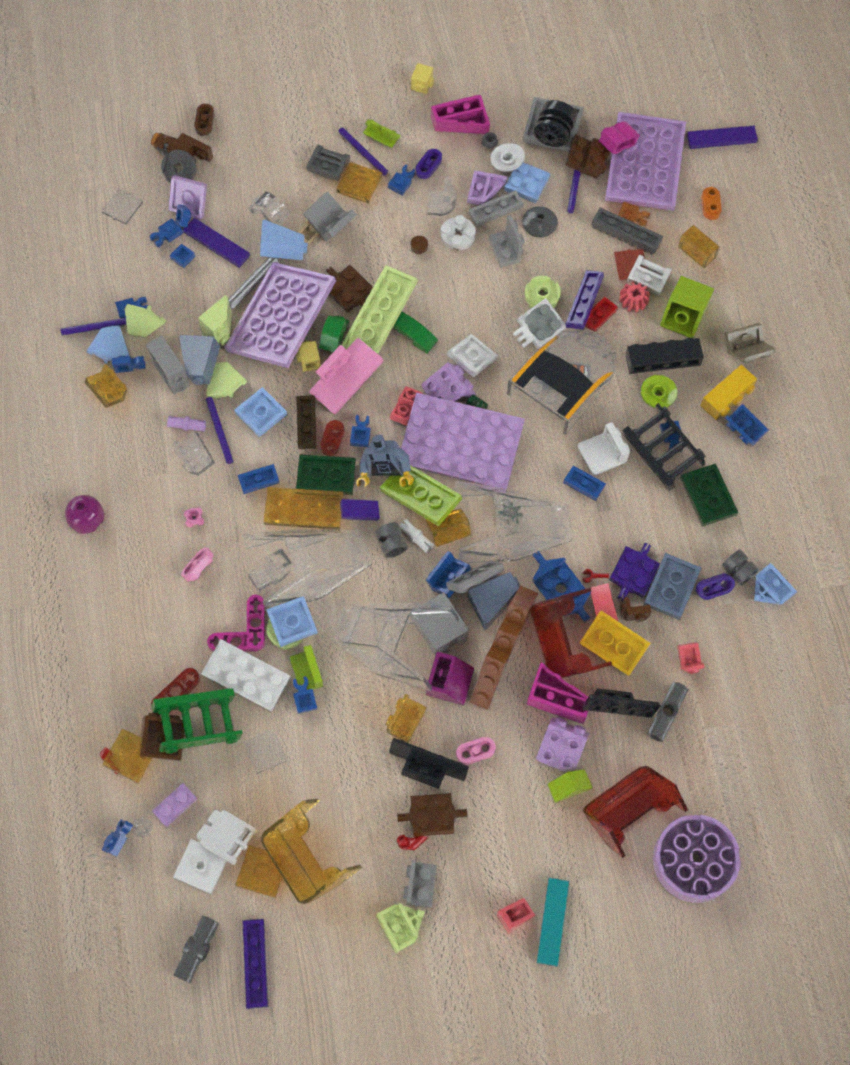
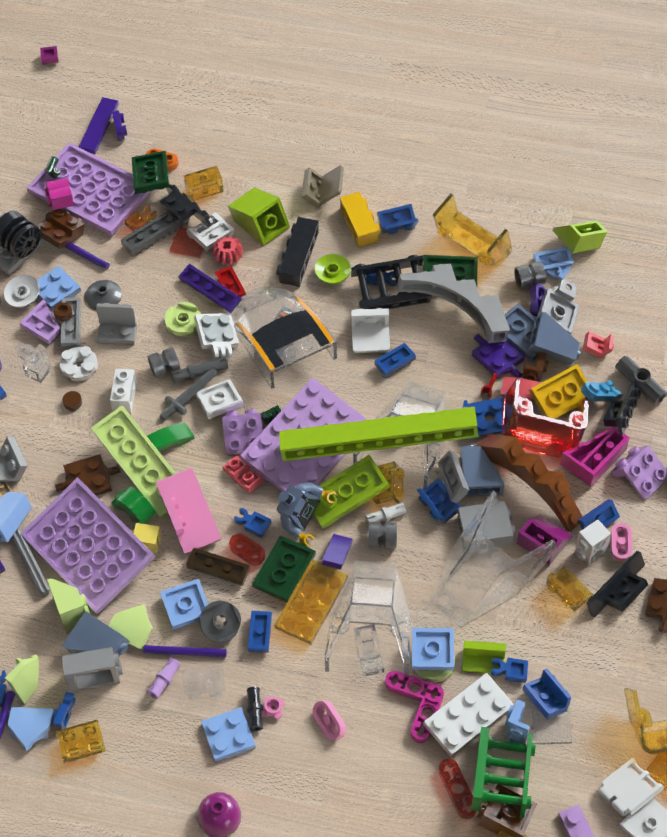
camera: 65 degrees left, 10 degrees down
(157, 493) = (228, 734): none -> light blue plate
(186, 503) = (254, 696): none -> black pin
(243, 444) = (208, 618): none -> dark grey plate
(247, 714) = (516, 731): none -> light blue bracket
(287, 734) = (548, 695): none -> blue bracket
(443, 277) = (123, 389): none -> white brick
(452, 324) = (177, 404): none -> dark grey sword
(457, 722) = (592, 542): none -> white brick
(480, 494) = (378, 434): none -> lime brick
(485, 294) = (163, 362): none -> flat silver wheel
(491, 323) = (198, 370): none -> dark grey pin
(492, 722) = (605, 513): none -> blue plate
(500, 196) = (62, 311): none -> reddish brown tile
(631, 676) = (601, 391): none -> dark azure plate
(646, 120) = (51, 167): none -> dark green arm
(659, 239) = (182, 208): none -> black bracket
(667, 613) = (553, 340): none -> sand blue slope
(680, 511) = (464, 294): none -> light grey arch
(683, 197) = (150, 172): none -> dark green plate
(723, 607) = (561, 299): none -> light grey plate
(725, 153) = (118, 120): none -> dark purple plate
(758, 494) = (470, 235): none -> clear yellow windscreen
(779, 63) = (49, 55): none -> magenta plate
(812, 597) = (581, 236): none -> lime slope

